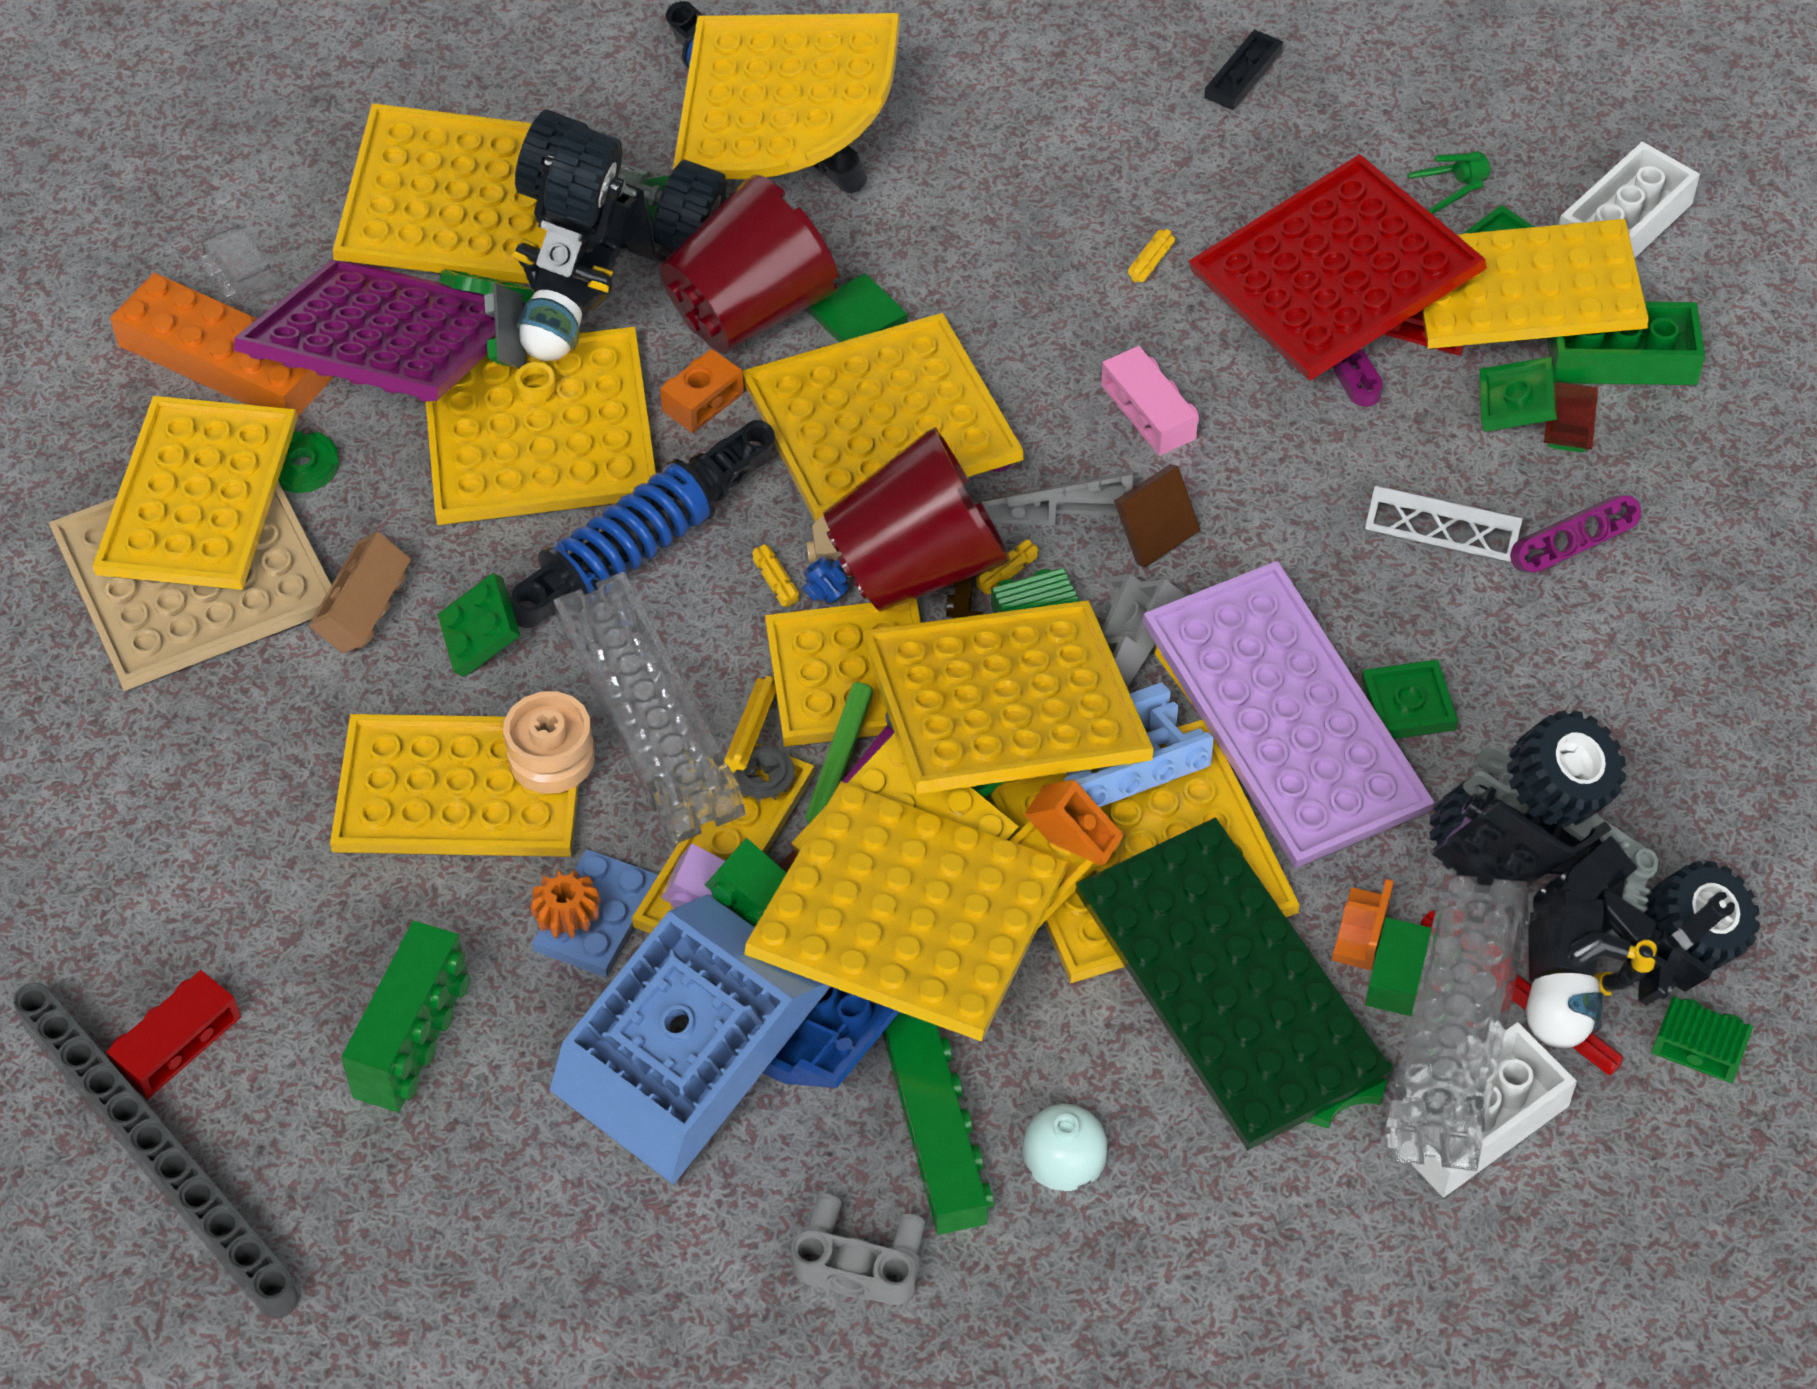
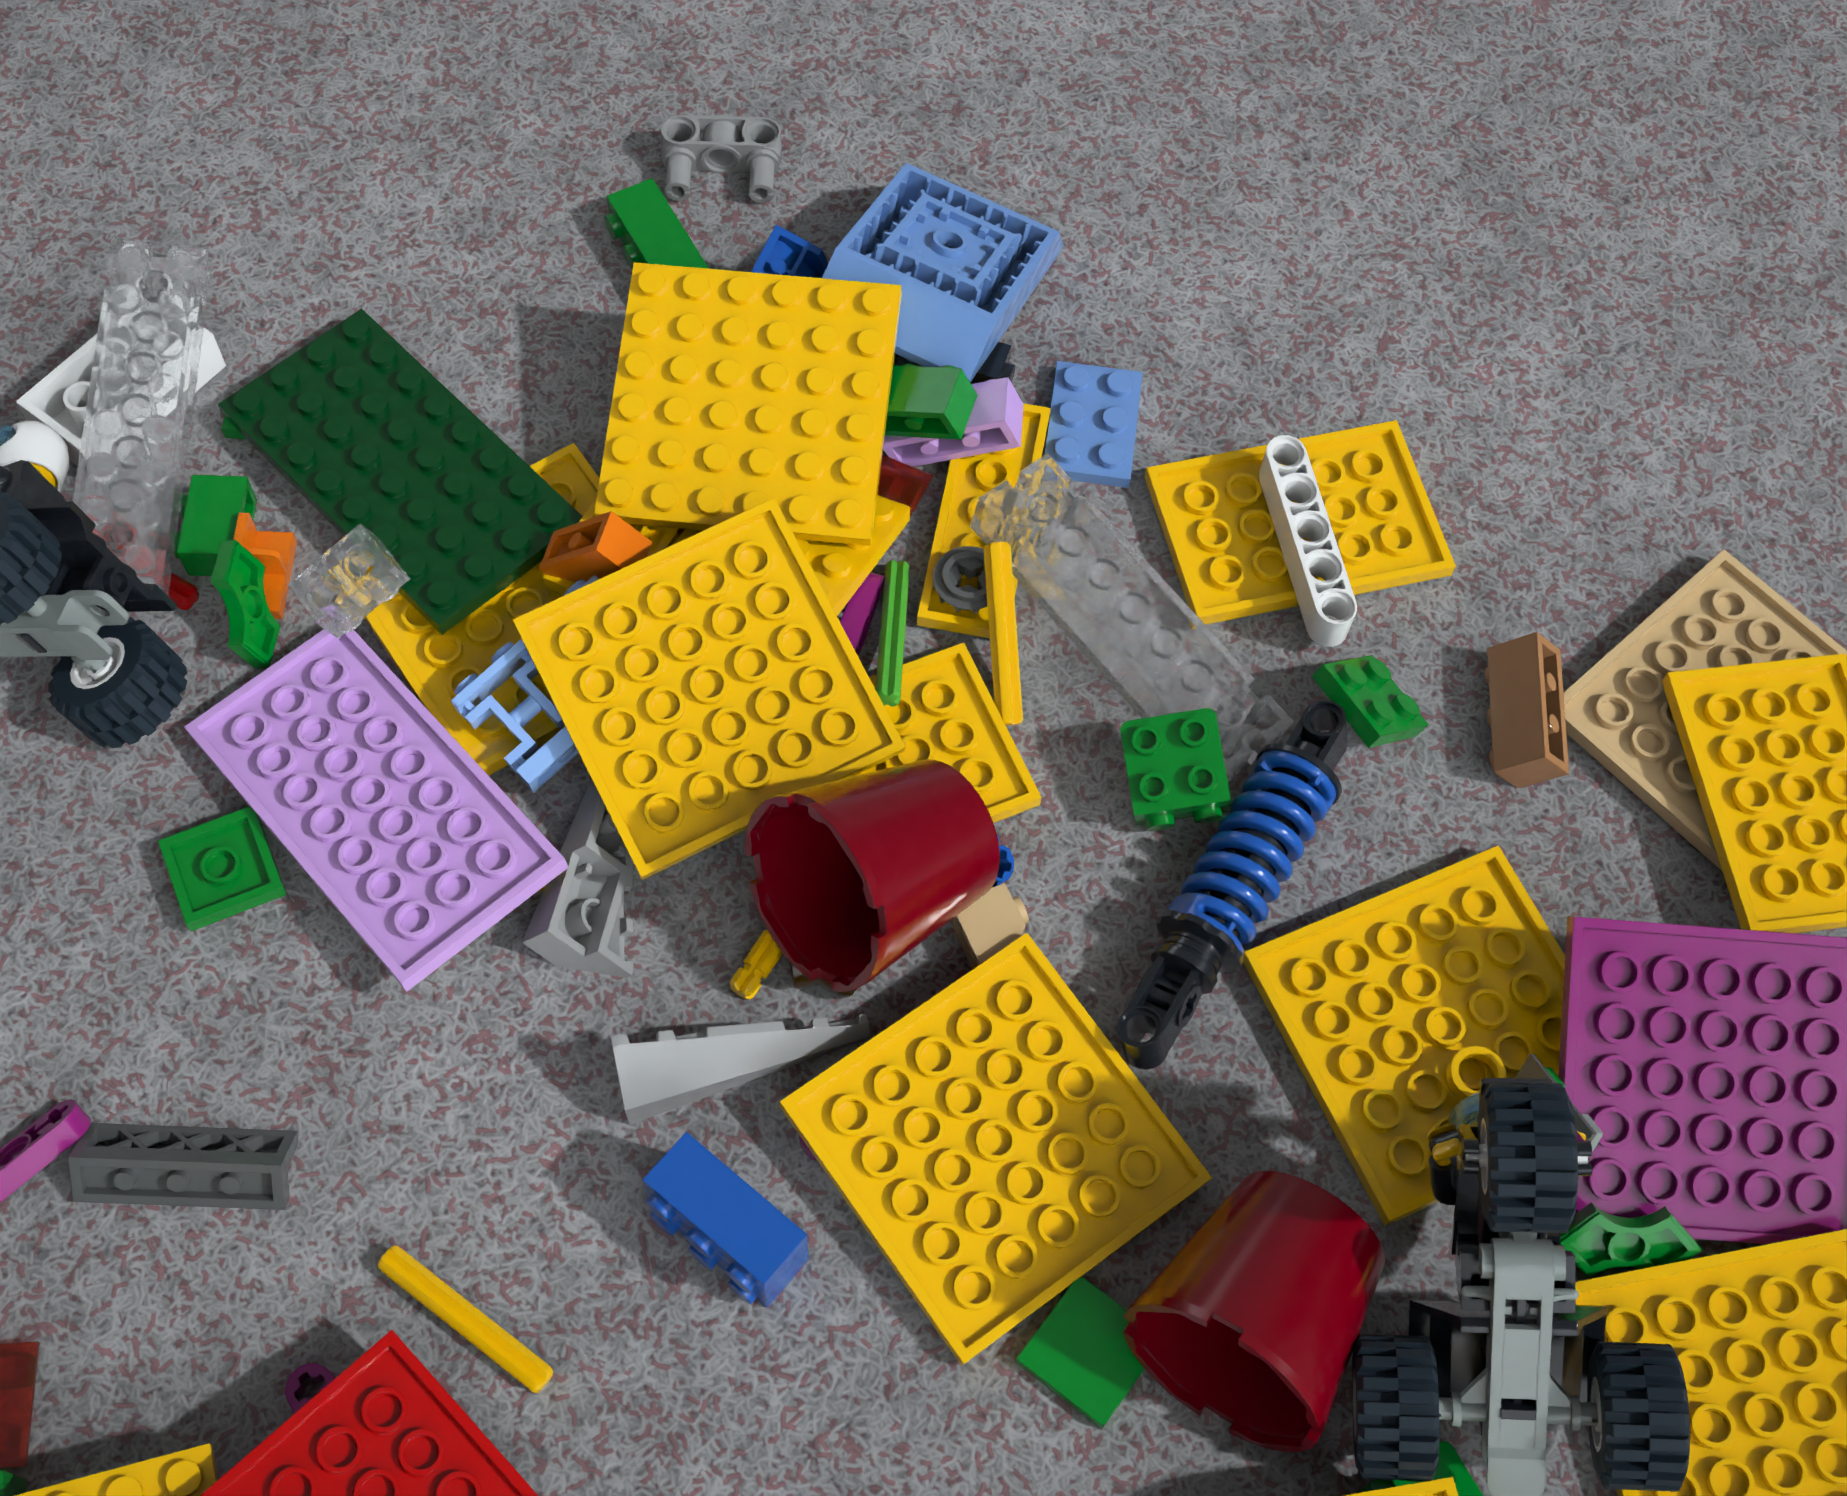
camera: 160 degrees right, 10 degrees up
(160, 1161) = (1404, 123): dark grey beam -> none
(173, 1033) = (1441, 216): red brick -> none
(317, 472) = (1687, 883): green tile -> none
(406, 1017) = (1224, 251): green brick -> none
(468, 740) = (1304, 558): none -> white beam
(549, 742) = (1215, 544): light nougat wheel -> none
(565, 903) = (1120, 384): orange gear -> none
(659, 586) = (1175, 768): none -> green bracket
(701, 390) = (1259, 1104): orange brick -> none
(775, 575) = (1051, 873): yellow axle -> none
(1039, 590) = (711, 897): green brick -> none
(1065, 1147) = (547, 287): light aqua cylinder -> none
(1077, 397) = (725, 1221): none -> blue brick
(1149, 400) = (625, 1273): bright pink brick -> none
(1157, 515) = (578, 1045): reddish brown tile -> none
(1262, 405) = (465, 1319): none -> yellow axle
(1285, 852) = (343, 573): none -> clear brick
(1376, 872) = (240, 583): none -> green tile
(1518, 394) = (74, 1416): green plate -> none

